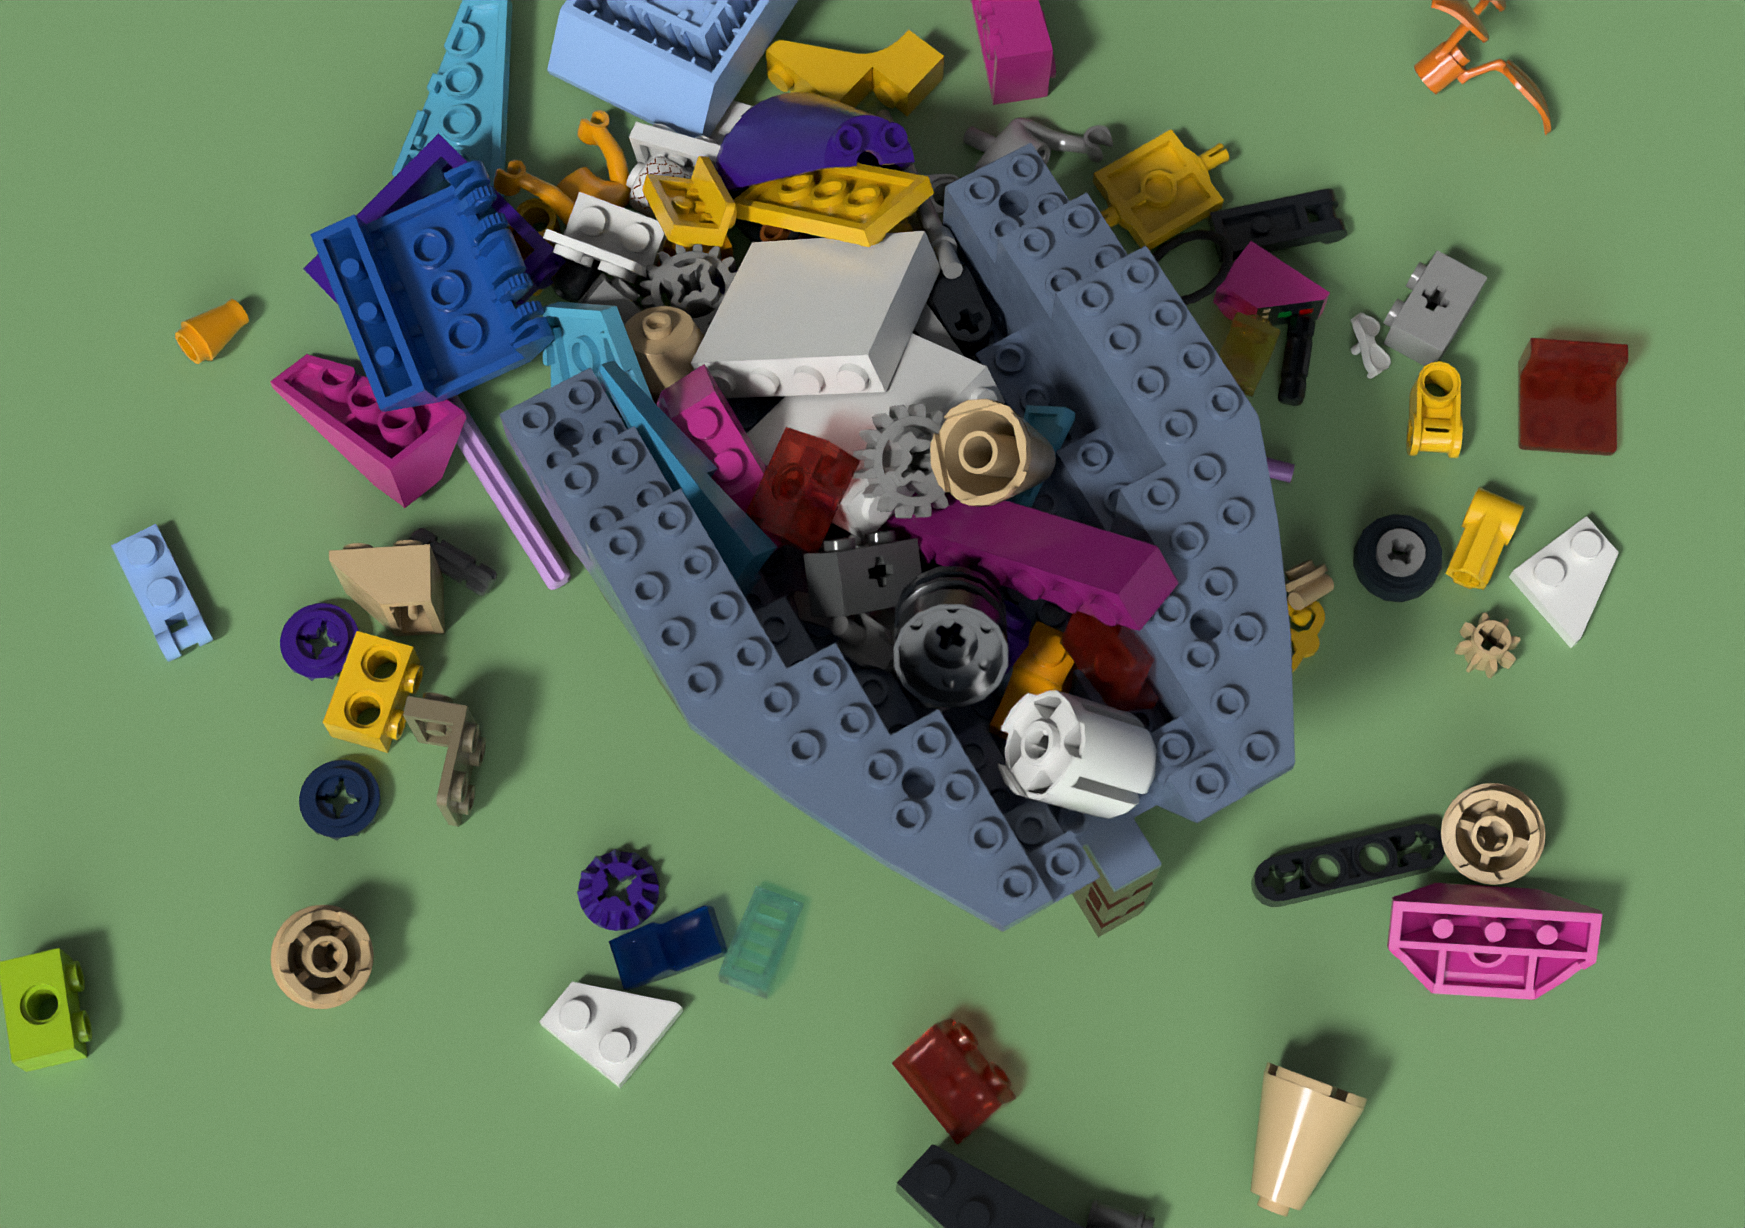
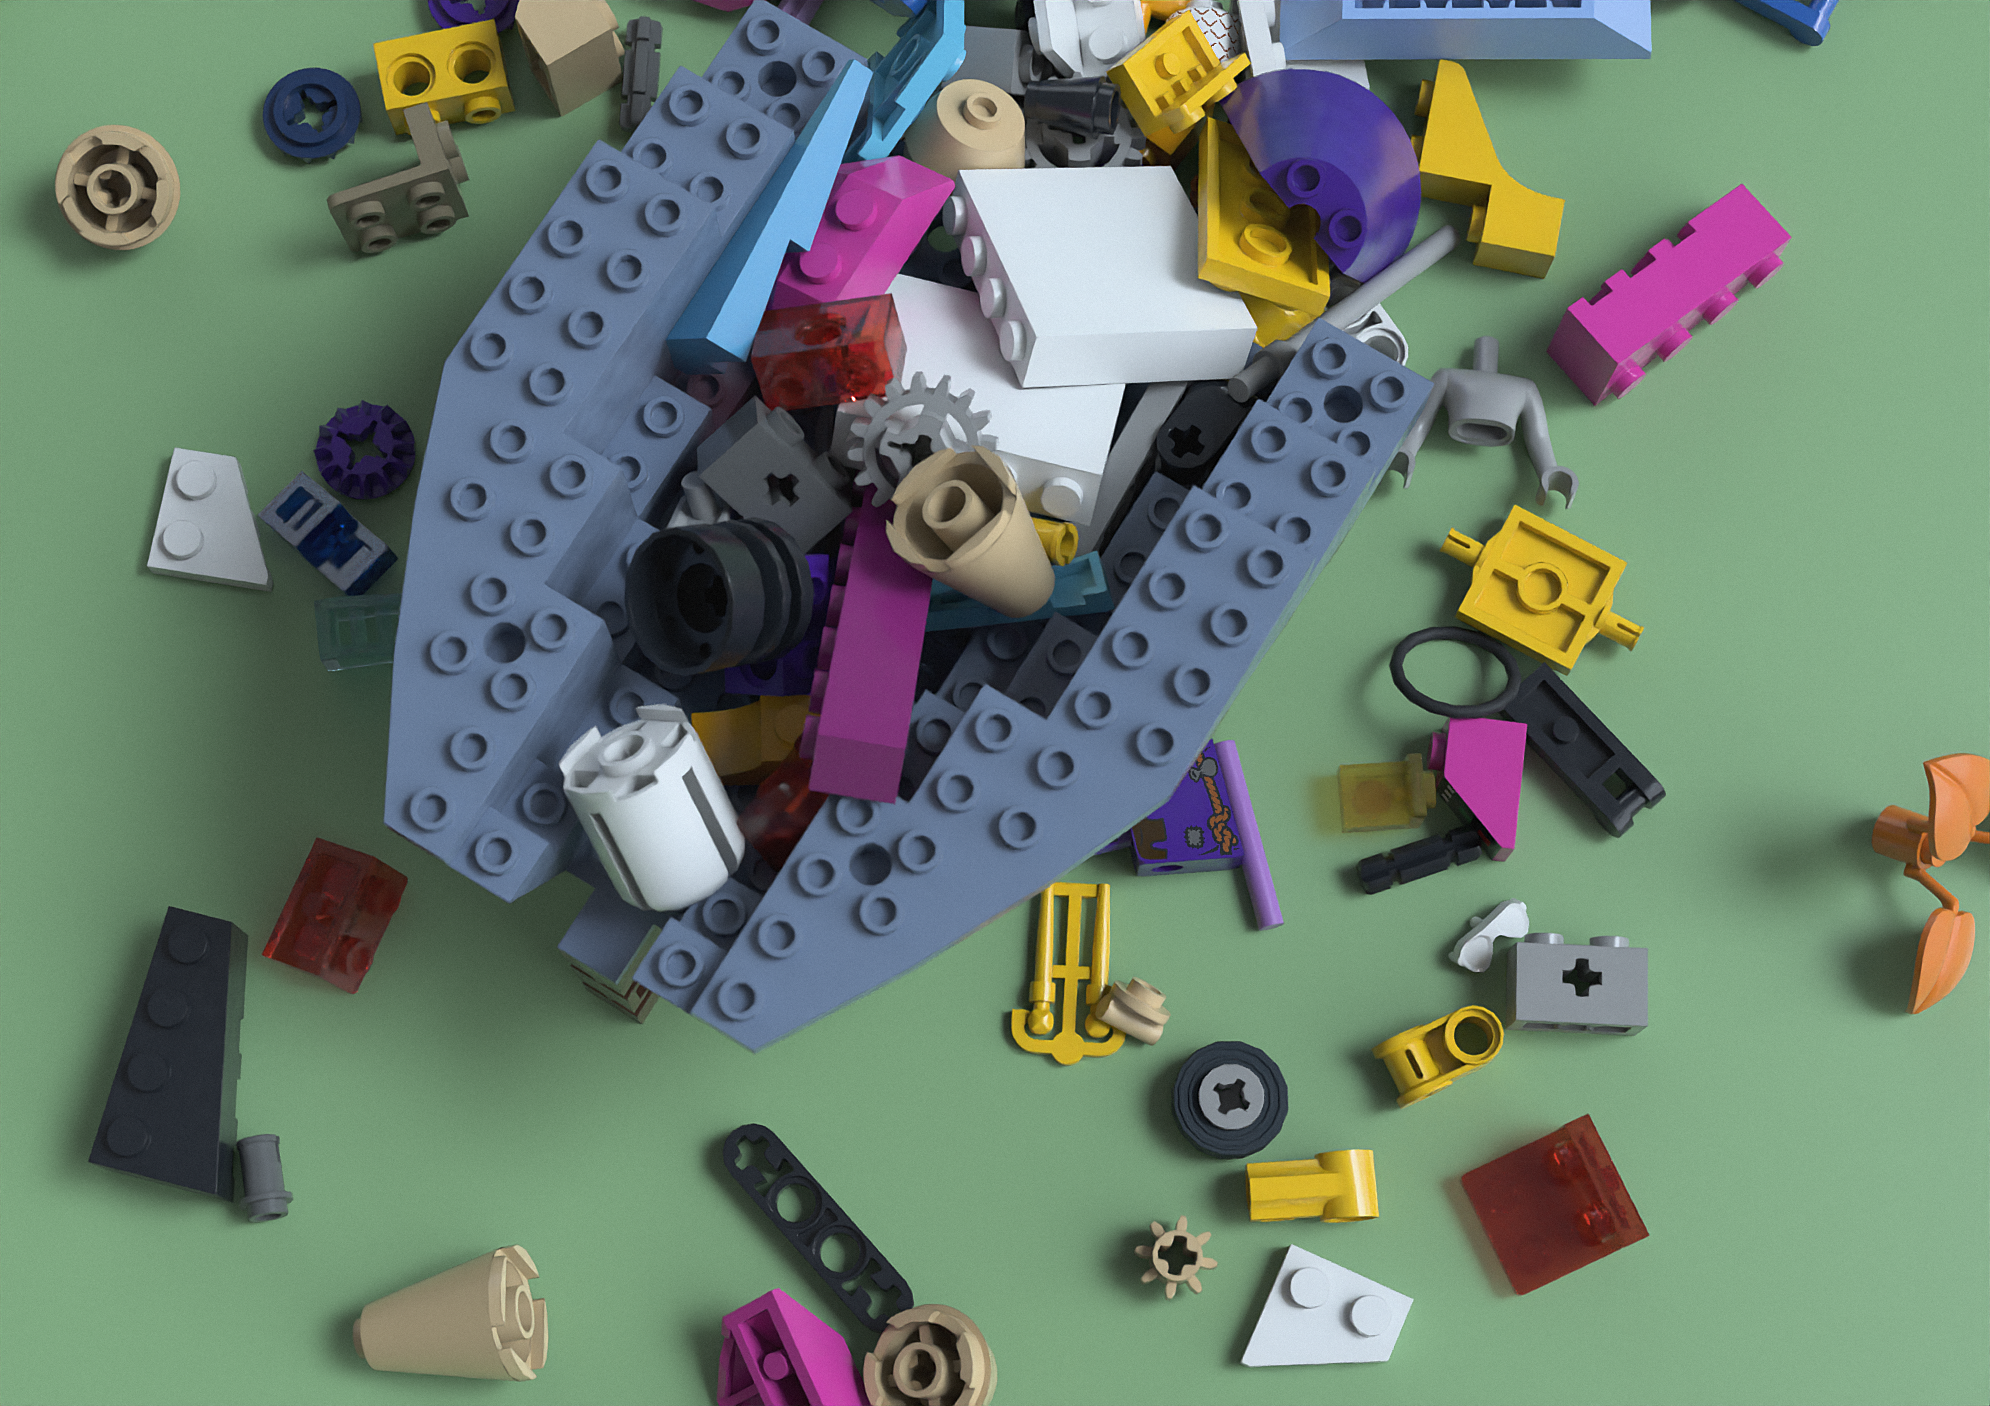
camera: 60 degrees right, 5 degrees up
(680, 272) = (1075, 104): none -> black cone

